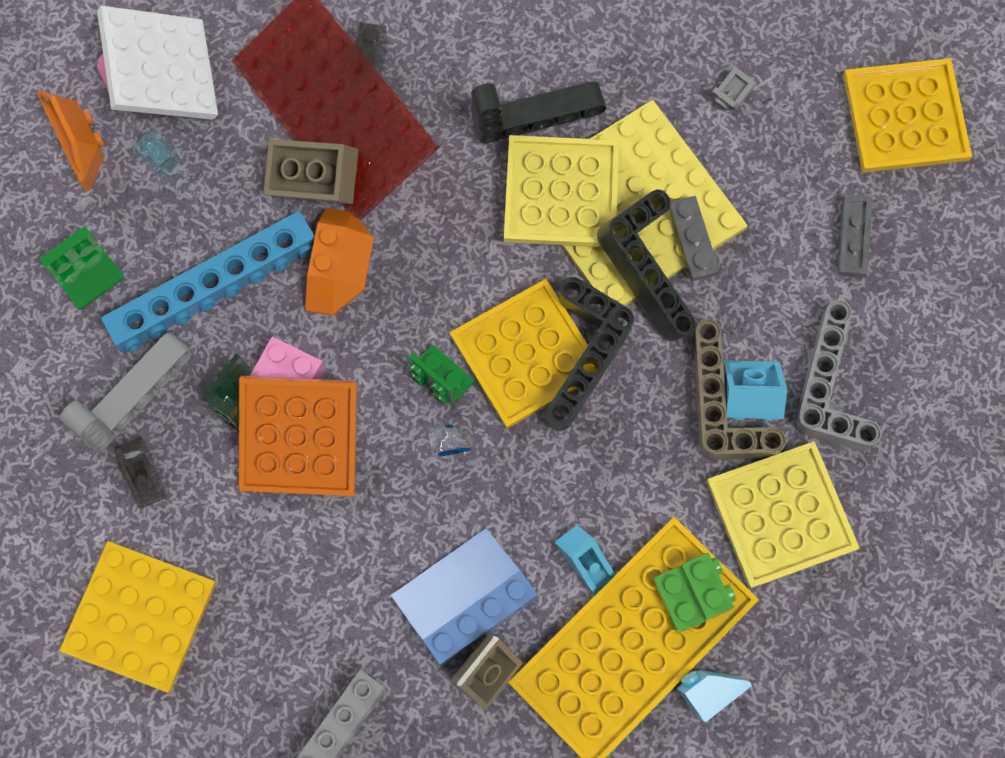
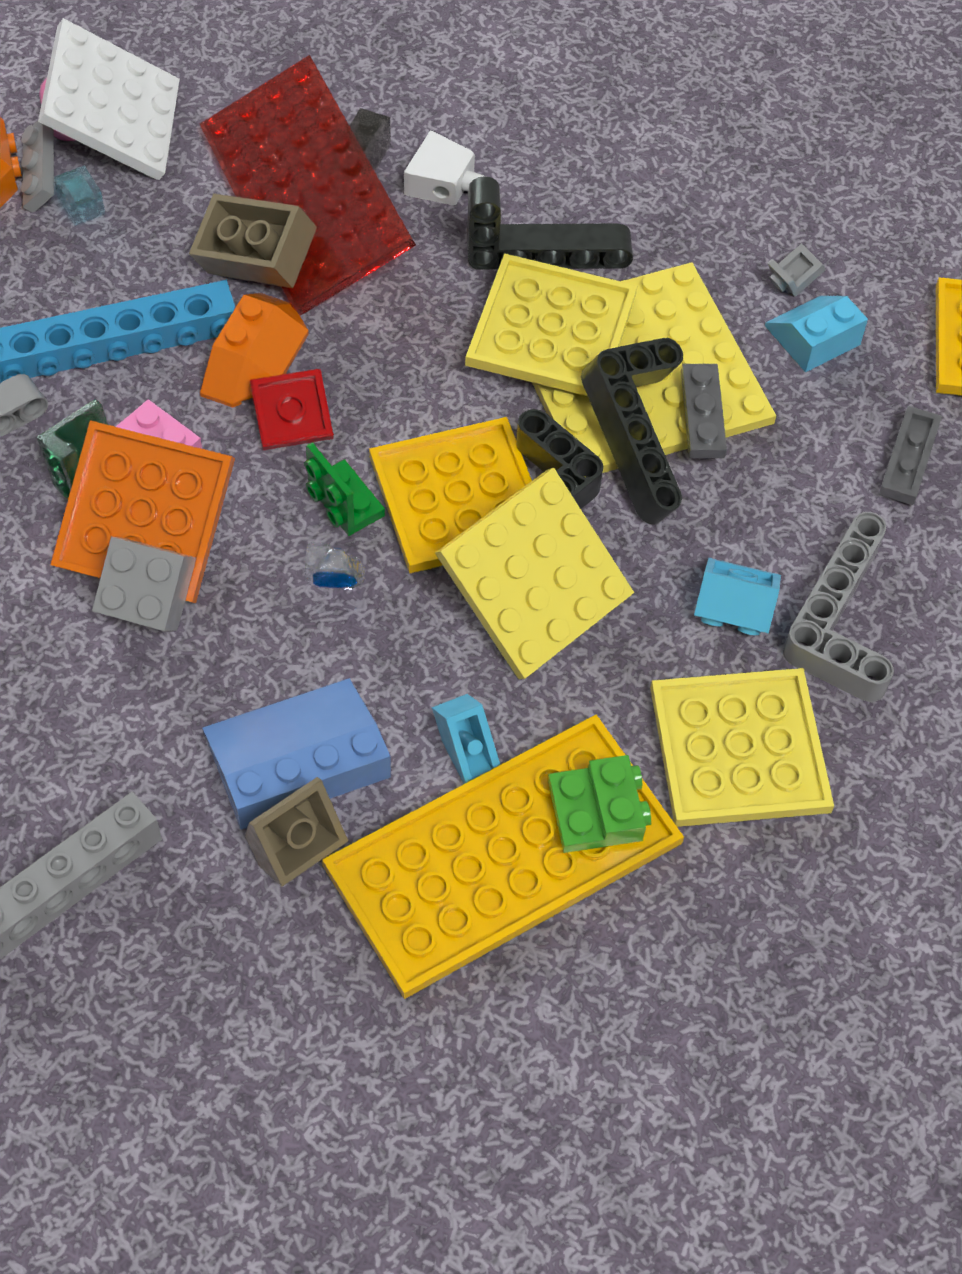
camera: 10 degrees right, 15 degrees down
(115, 135) = (37, 166): none -> light grey plate
(316, 496) = (144, 584): none -> light grey brick
(380, 311) = (291, 409): none -> red tile
(438, 61) = (440, 170): none -> white torso
(603, 416) = (535, 573): none -> light yellow plate
(710, 691) = (588, 930): slope -> none
(717, 404) = (682, 598): dark tan beam -> none
(761, 138) = (819, 330): none -> medium azure slope

